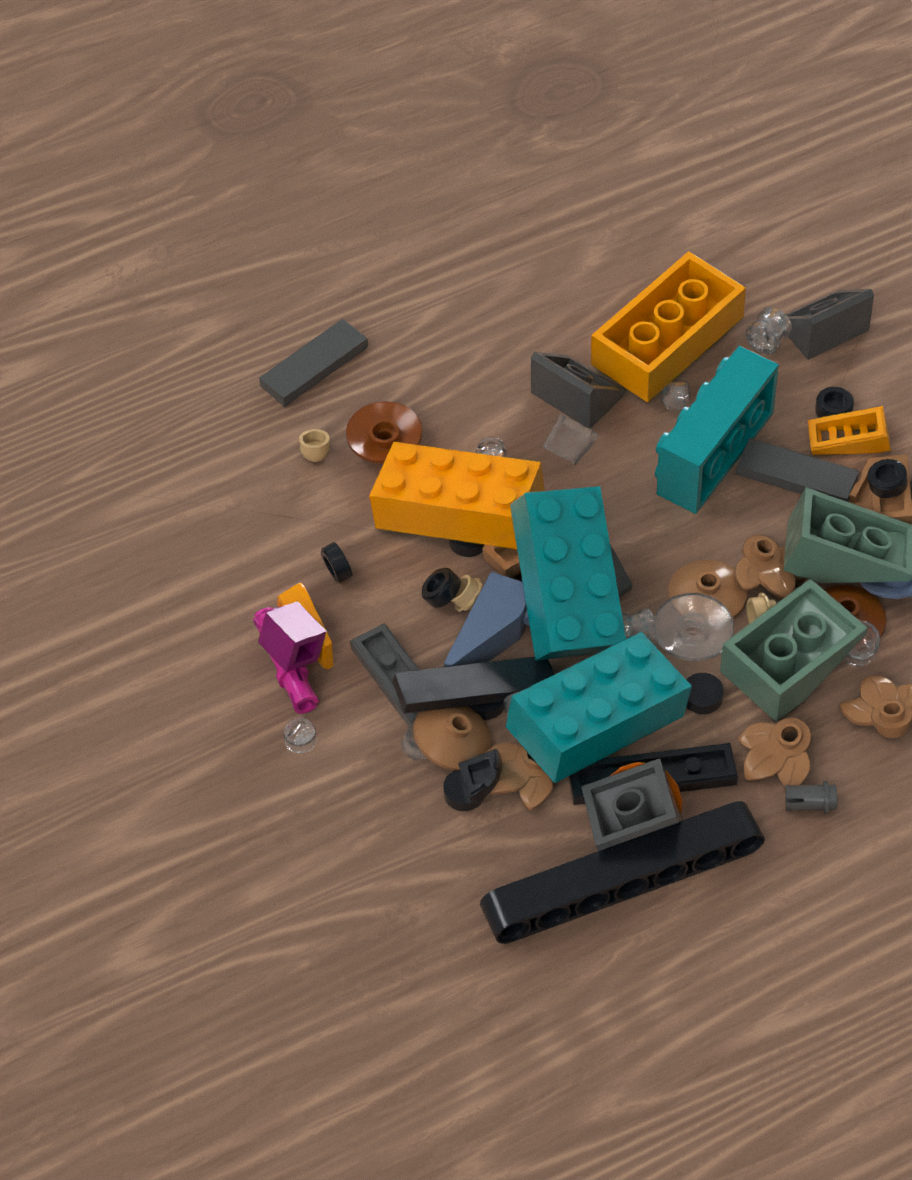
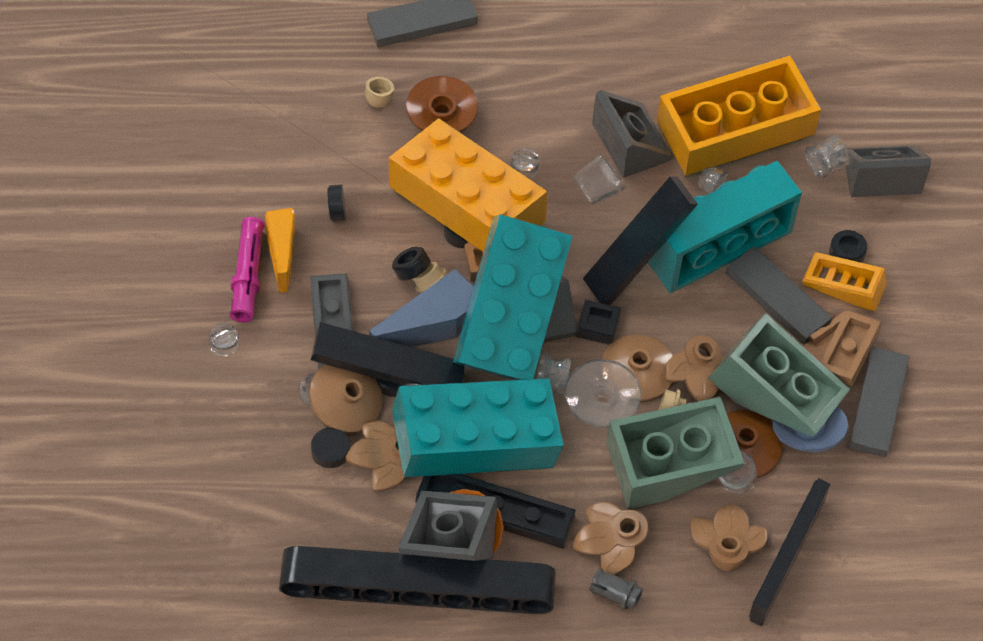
camera: 20 degrees right, 5 degrees up
(291, 636) = (255, 252): magenta brick -> none
(481, 774) = (346, 442): black tile -> none
(647, 567) = (598, 322): none -> black tile
(655, 470) = (640, 240): none -> black tile
(705, 693) = (579, 455): black tile -> none
(887, 478) = (849, 336): black tile -> none

